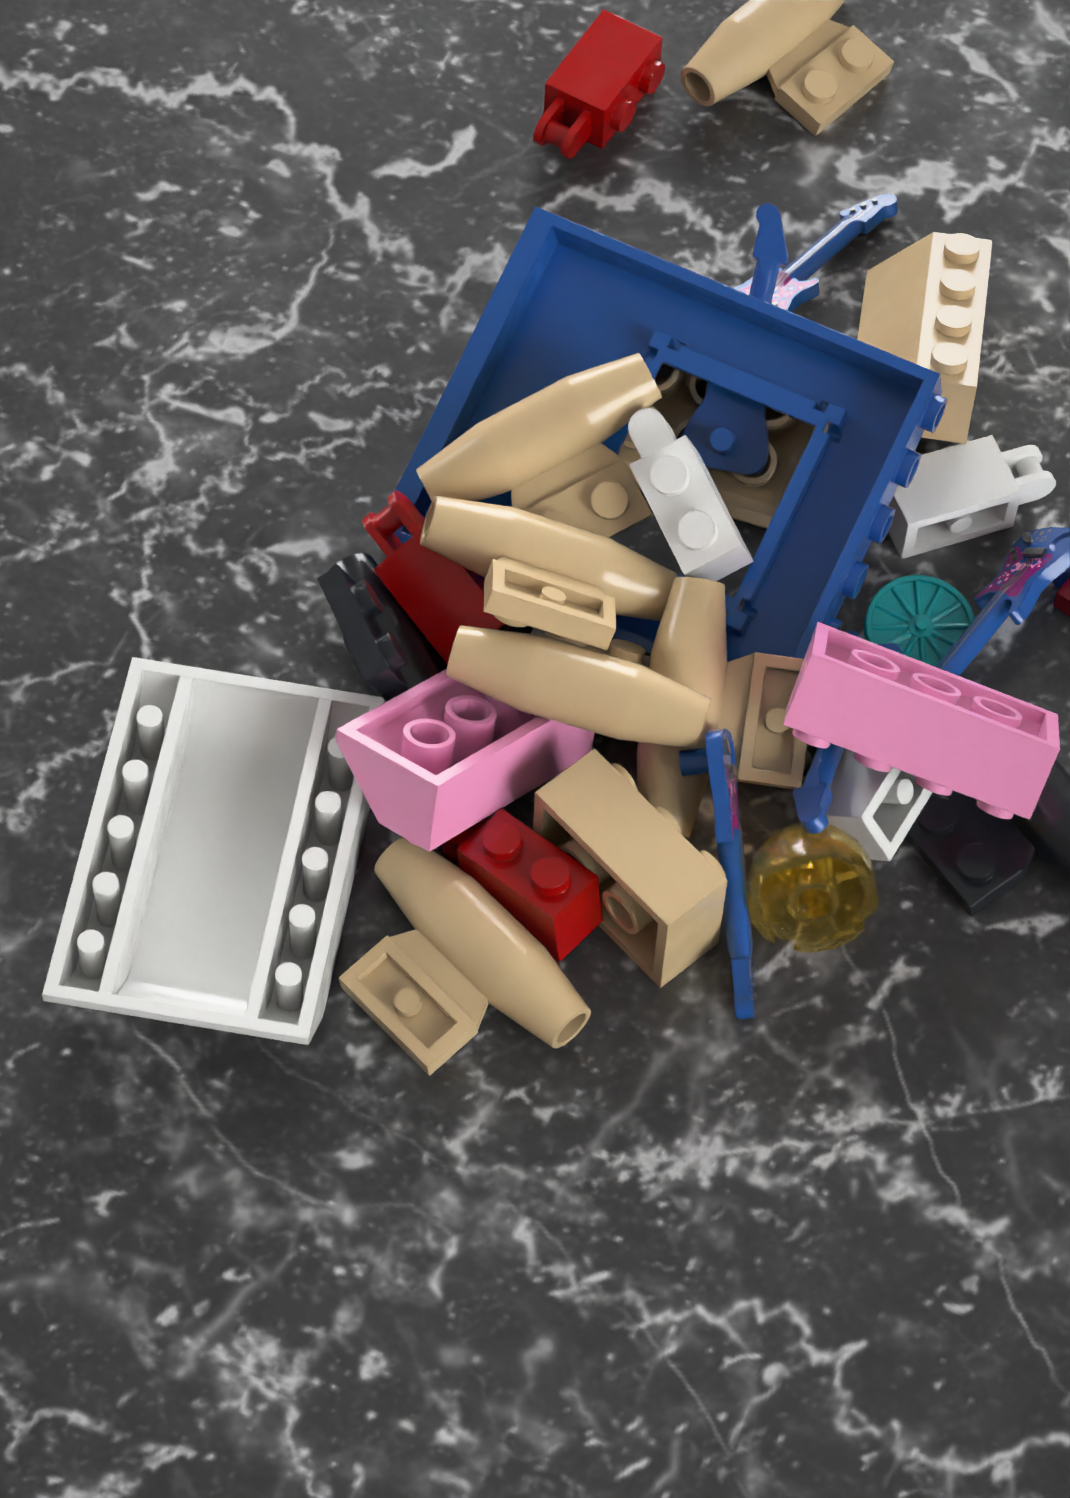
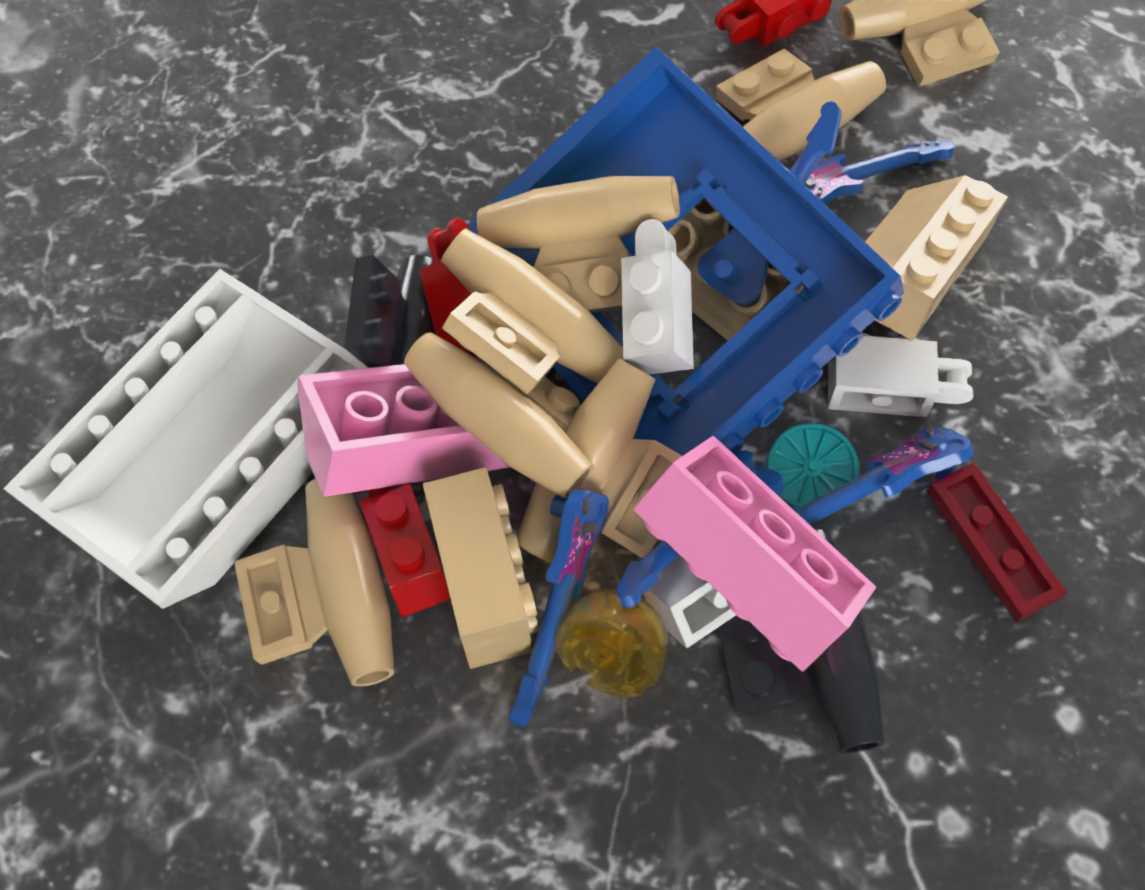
camera: 30 degrees right, 5 degrees up
(683, 217) = (787, 101): none -> tan plate

